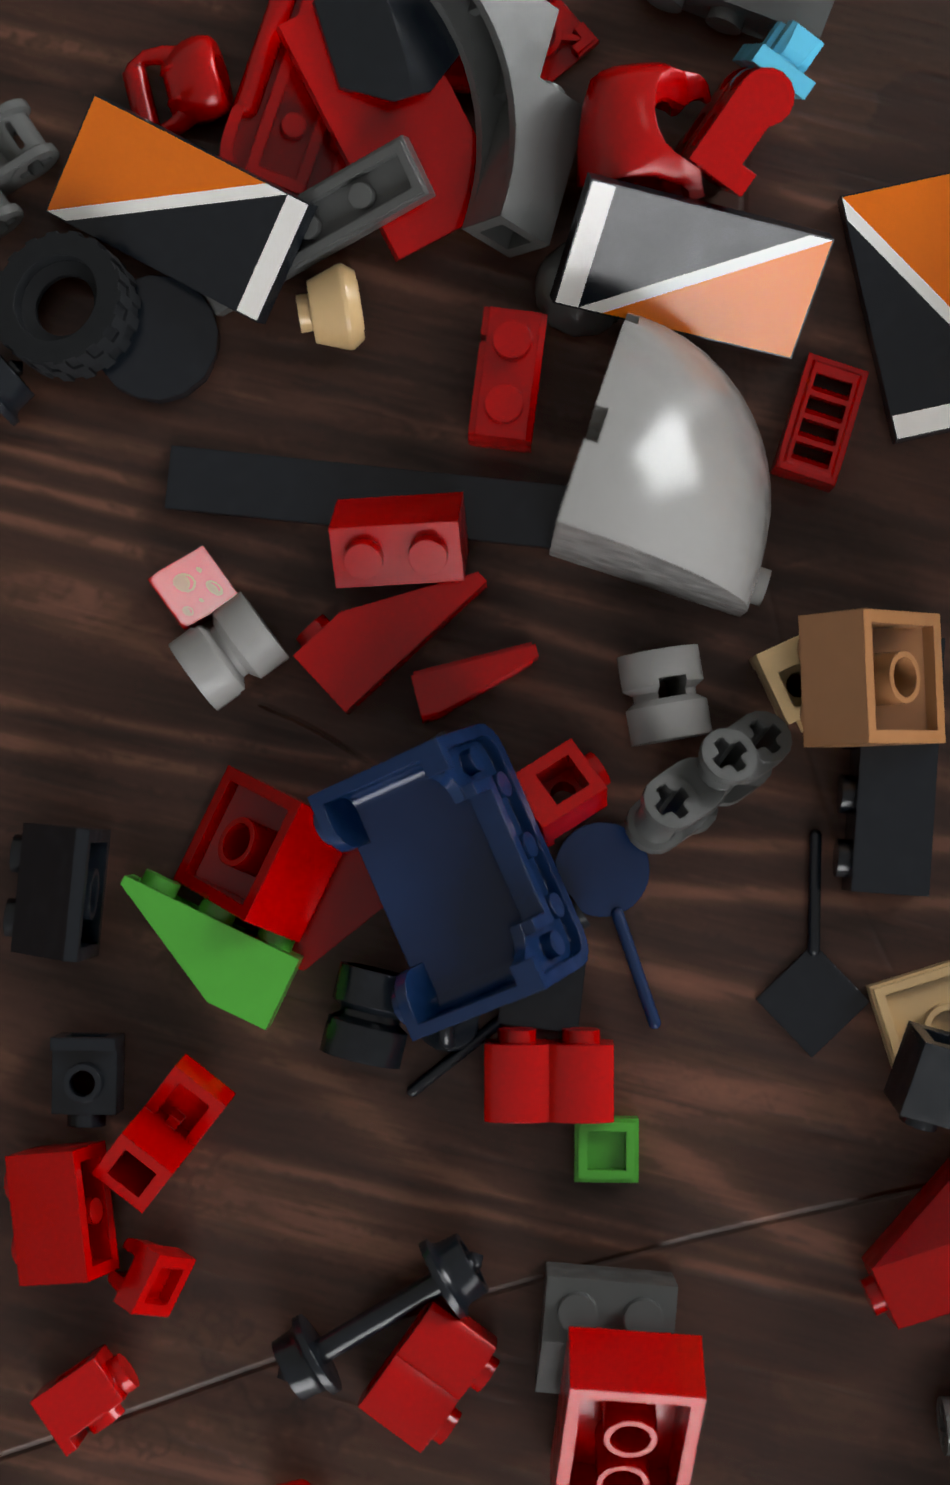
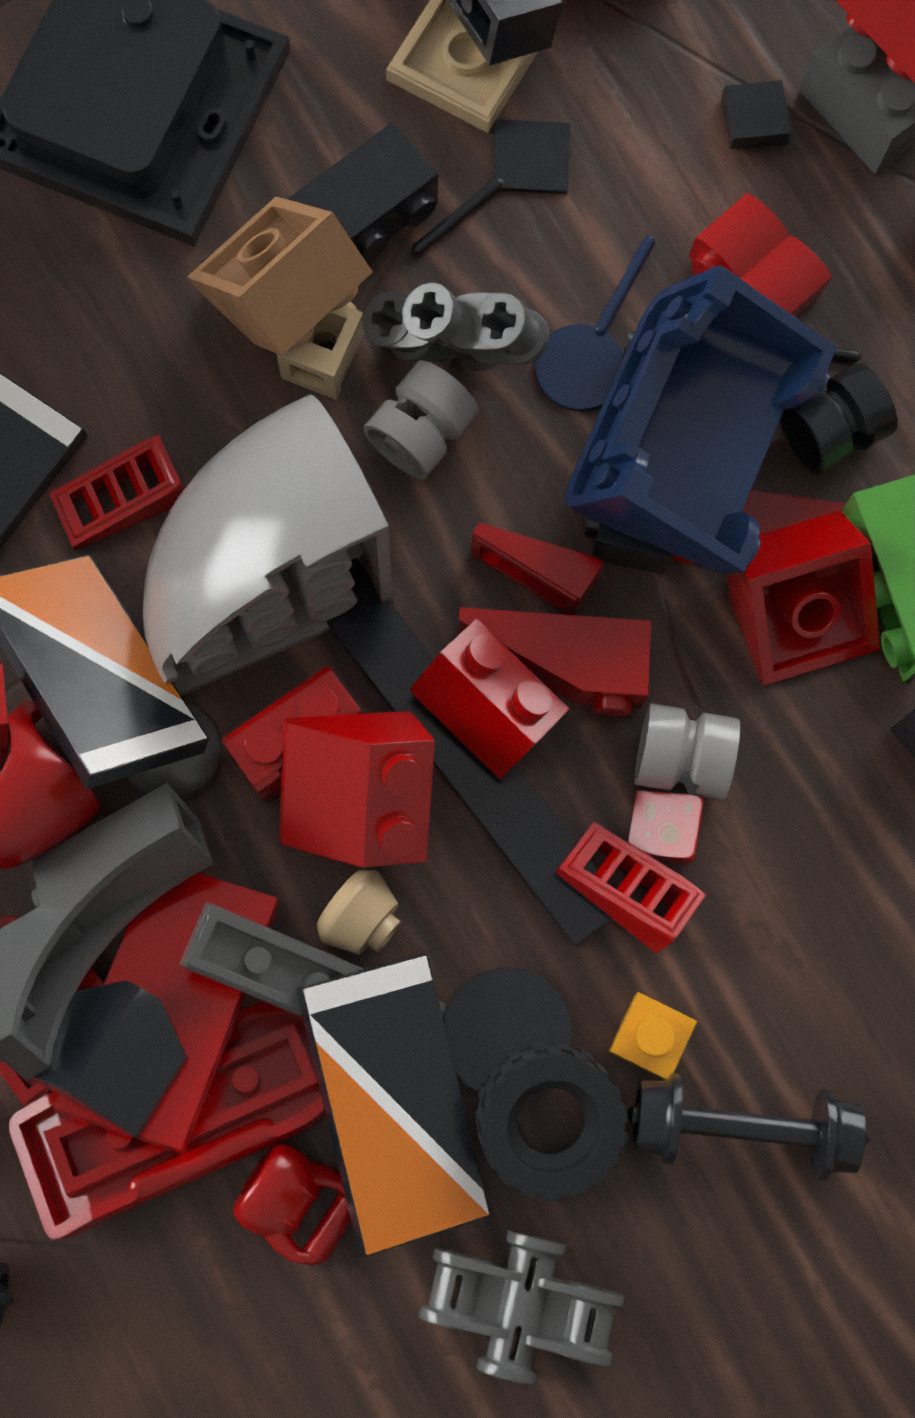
camera: 145 degrees left, 10 degrees down
(58, 439) = (652, 1036): none -> light orange plate
(120, 531) = (641, 868): none -> red slope
(419, 379) = (357, 787): none -> red slope
(569, 771) = (532, 421): red brick -> none
(607, 1151) = (769, 185): bright green tile -> none
(680, 1211) = (756, 114): none -> black tile

